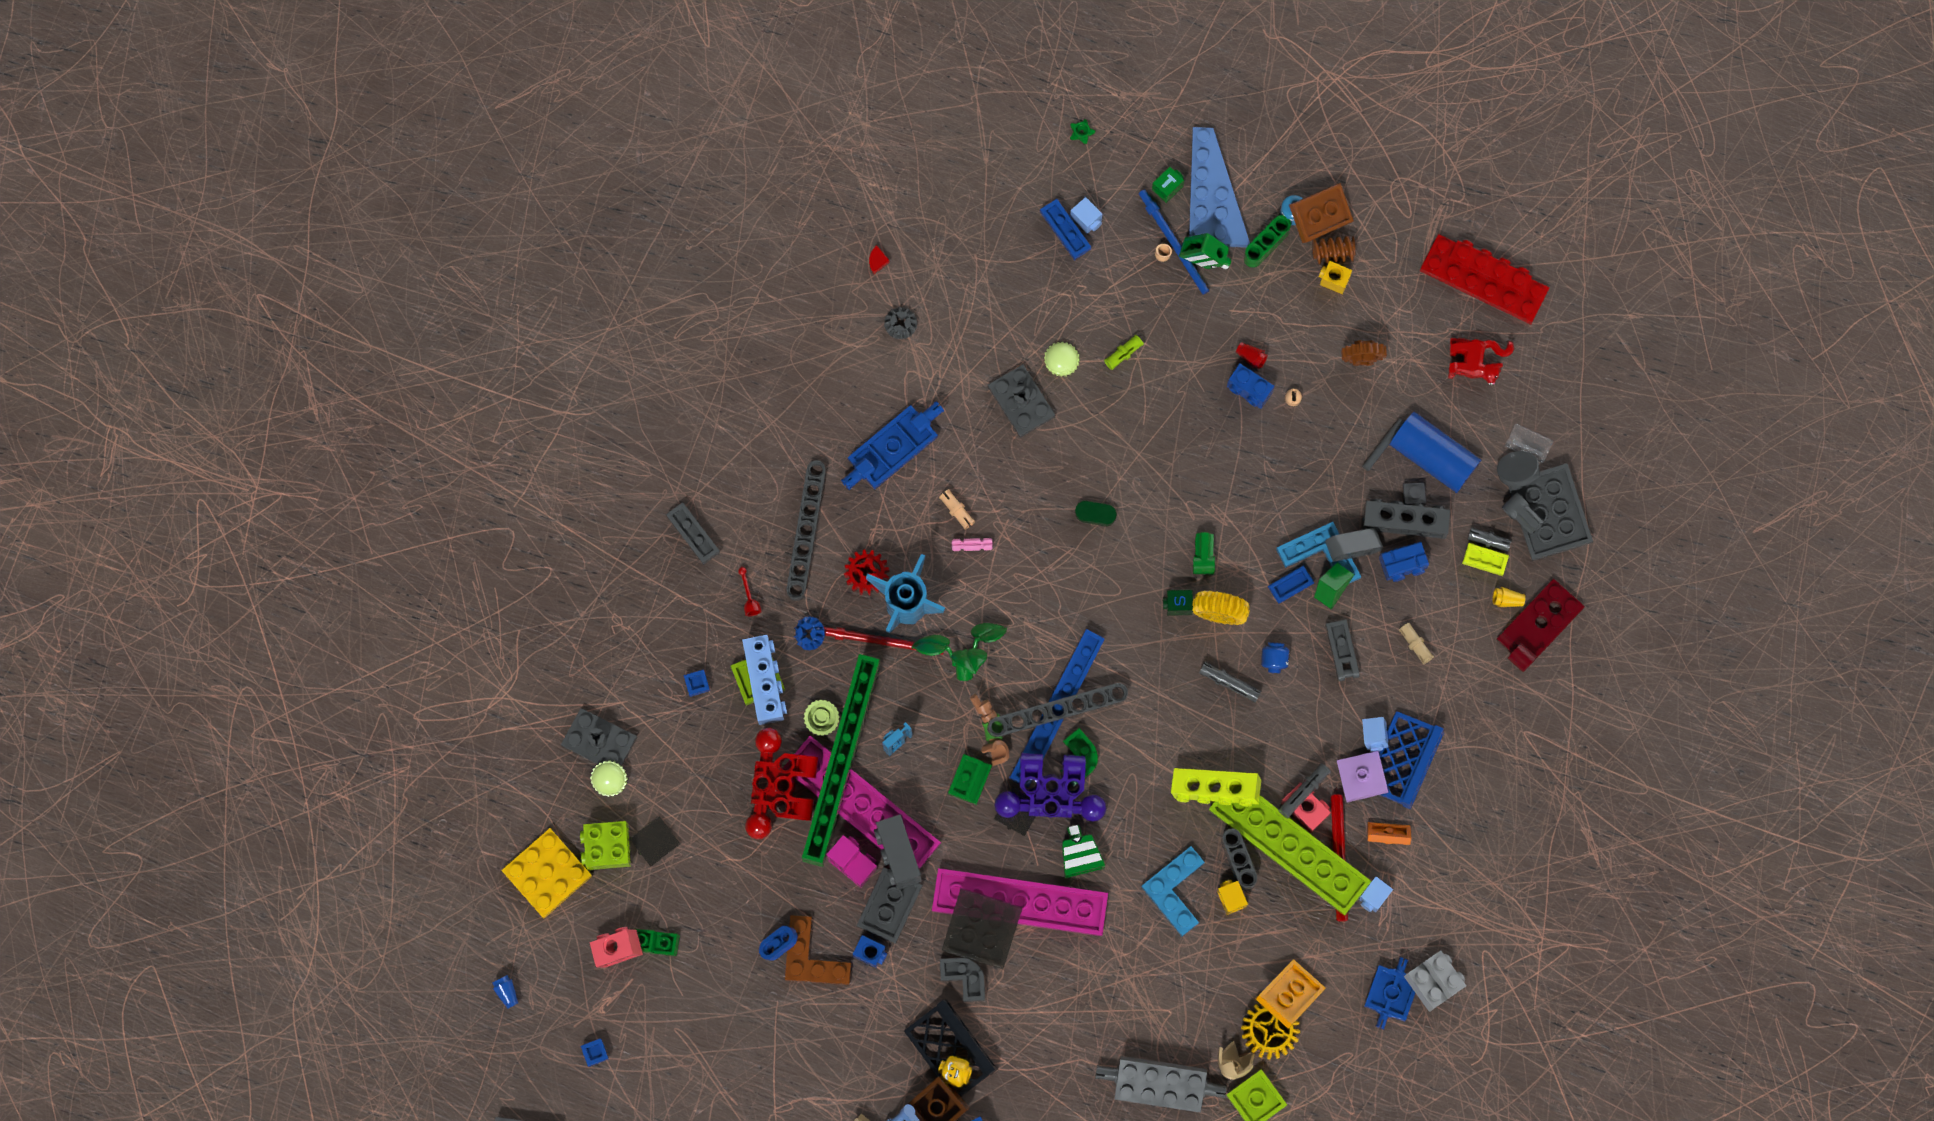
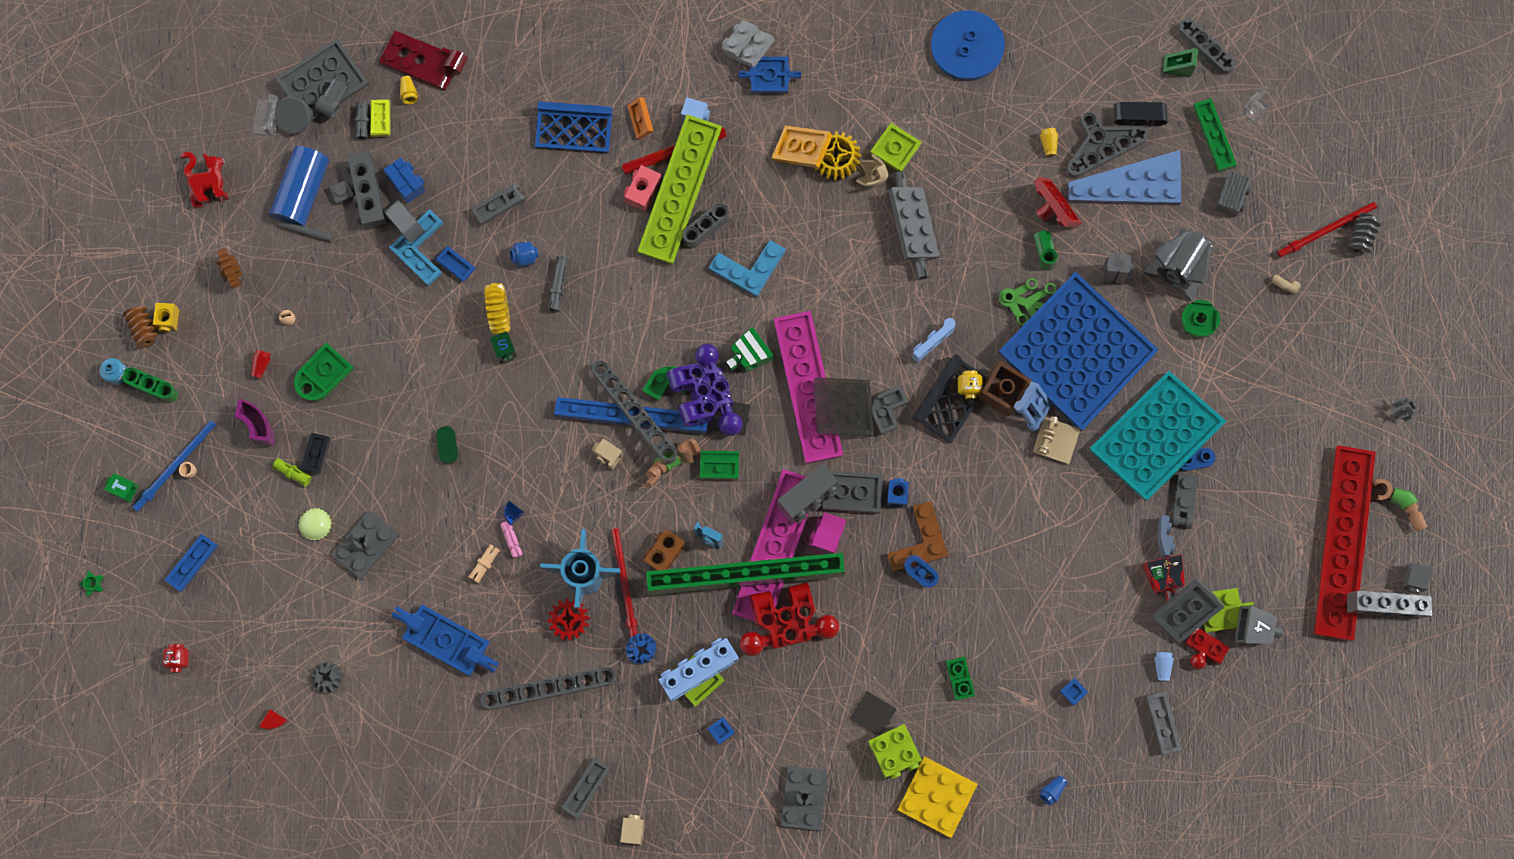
camera: 110 degrees left, 0 degrees up
(609, 778) = (834, 774): yellowish green hat -> none
(627, 947) = (987, 715): coral brick -> none
(633, 563) = (632, 830): none -> tan brick
(751, 606) = (634, 710): red hinge -> none
(821, 717) = (712, 609): yellowish green hat -> none
(894, 693) = (669, 554): none -> dark orange brick
(966, 661) = (620, 489): green plant -> none
(973, 187) = (175, 658): none -> red head
(998, 553) = (512, 513): none -> clear blue tile
(1022, 1056) = (934, 340): none -> light blue plate
(1025, 669) = (607, 453): none -> tan brick
(1086, 215) = (173, 547): light blue brick -> none
(1134, 381) = (315, 453): none -> black plate
(1185, 778) = (654, 290): neon yellow brick -> none
(1187, 332) = (258, 424): none -> magenta brick
(1203, 559) = (458, 340): green piece -> none
(1205, 251) = (176, 425): green torso -> none
(1211, 194) = (126, 445): medium blue wing -> none
(1218, 414) = (323, 372): none -> green plate
(1231, 896) = (739, 220): yellow brick -> none
(1250, 386) = (289, 353): blue brick -> none
(1310, 783) = (630, 189): dark grey pin -> none
(1321, 213) = (109, 345): dark orange tile -> none
(1332, 585) = (445, 227): green slope -> none
(1362, 776) = (600, 153): lavender plate -> none
(1375, 734) = (561, 153): light blue brick -> none
(1416, 643) = (472, 148): tan pin -> none
(1485, 277) = (127, 197): red plate -> none

